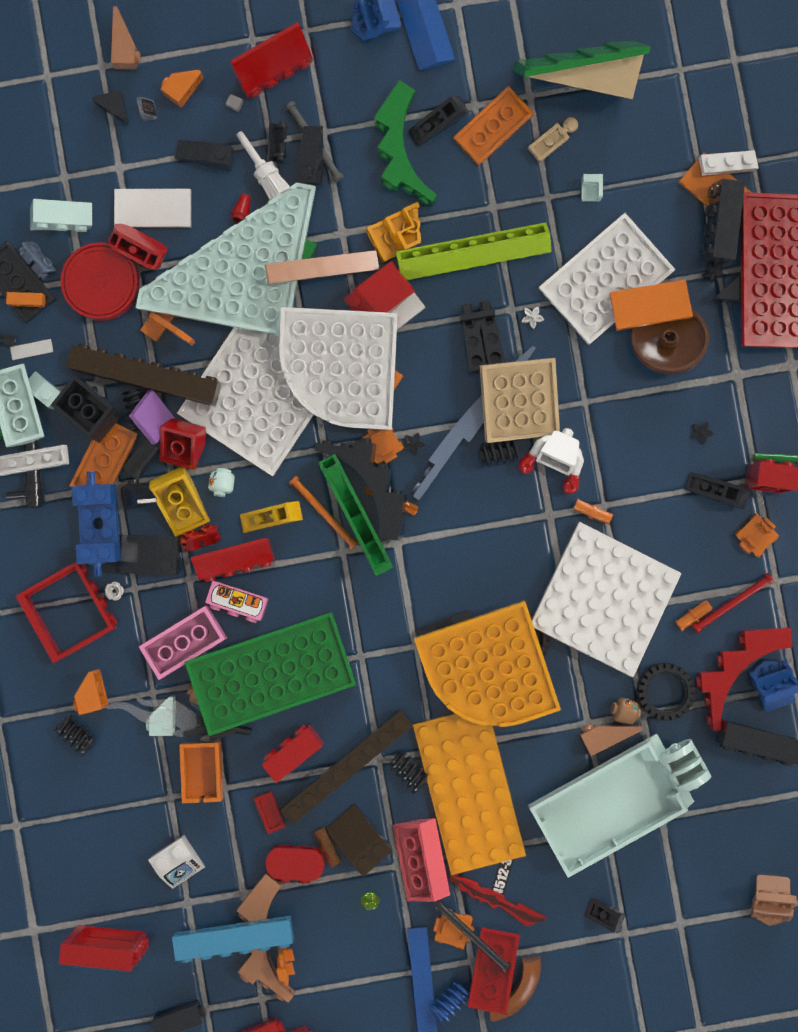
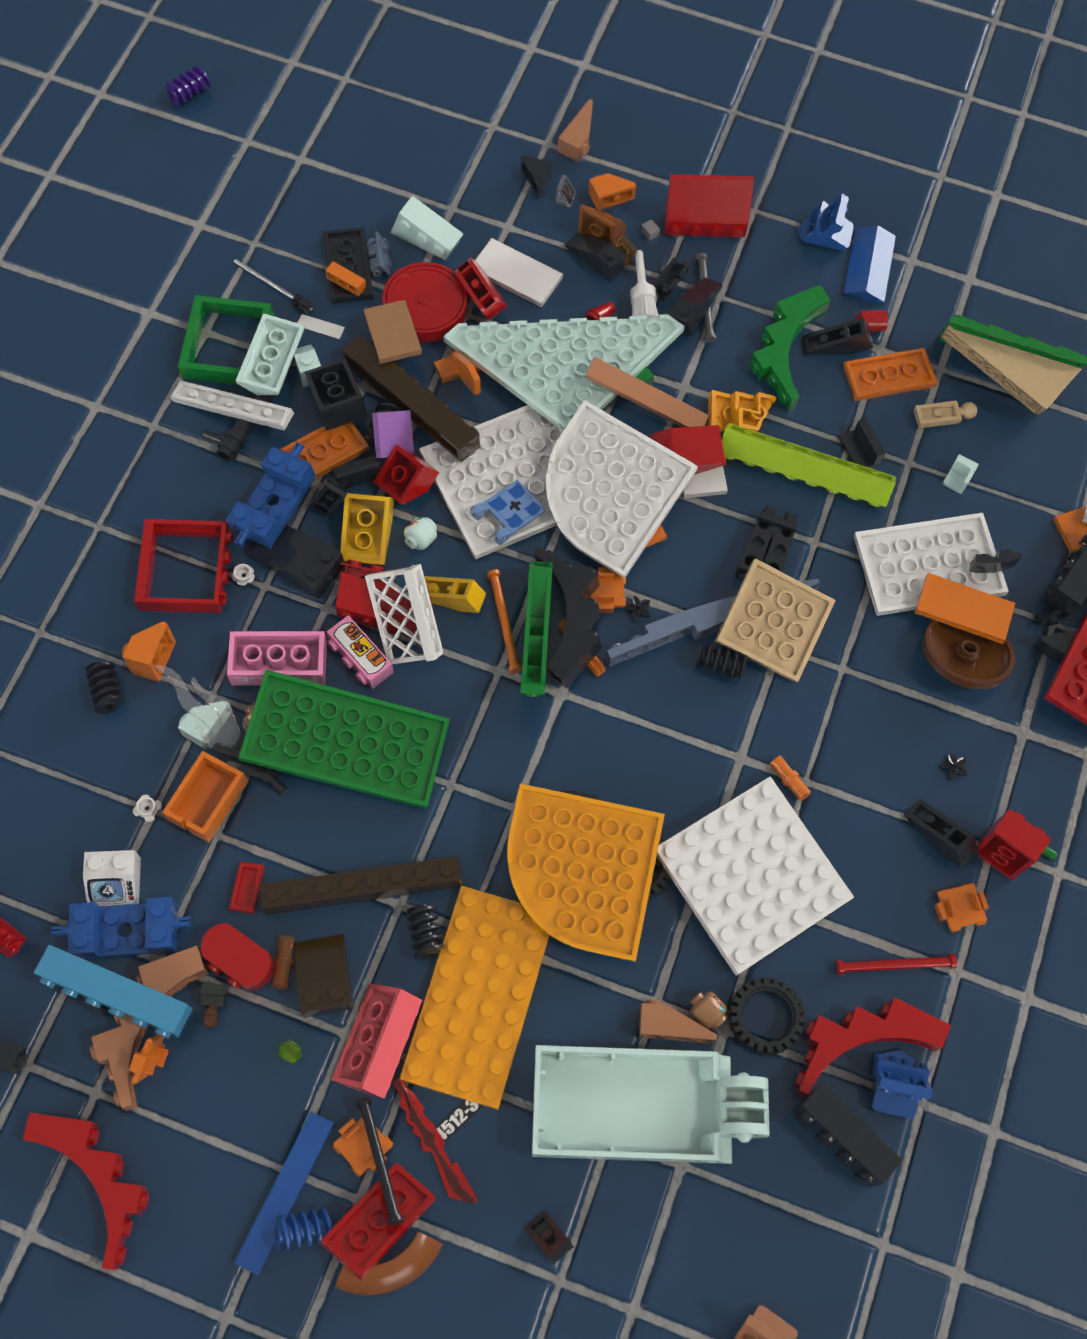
camera: 25 degrees right, 20 degrees down
(95, 329) = (392, 331): none -> medium nougat tile
(160, 800) = (142, 803): none -> white plate
(191, 903) = (95, 929): none -> blue brick
(197, 128) = (600, 225): none -> dark orange slope
(226, 136) = (626, 247): none -> clear orange tile
(266, 554) = (421, 609): none -> white fence
(277, 422) = (512, 508): none -> medium blue flag
(292, 752) = (313, 833): red brick -> none
(297, 897) = (213, 997): none -> pearl dark grey piece
(455, 85) = (875, 319): none -> red brick
(505, 207) = (862, 445): none -> black panel
(532, 317) = (832, 559): white plant -> none
(559, 453) = (786, 694): white torso -> none
(658, 250) = (1002, 561): none -> black slope
(693, 615) = (843, 951): orange axle -> none

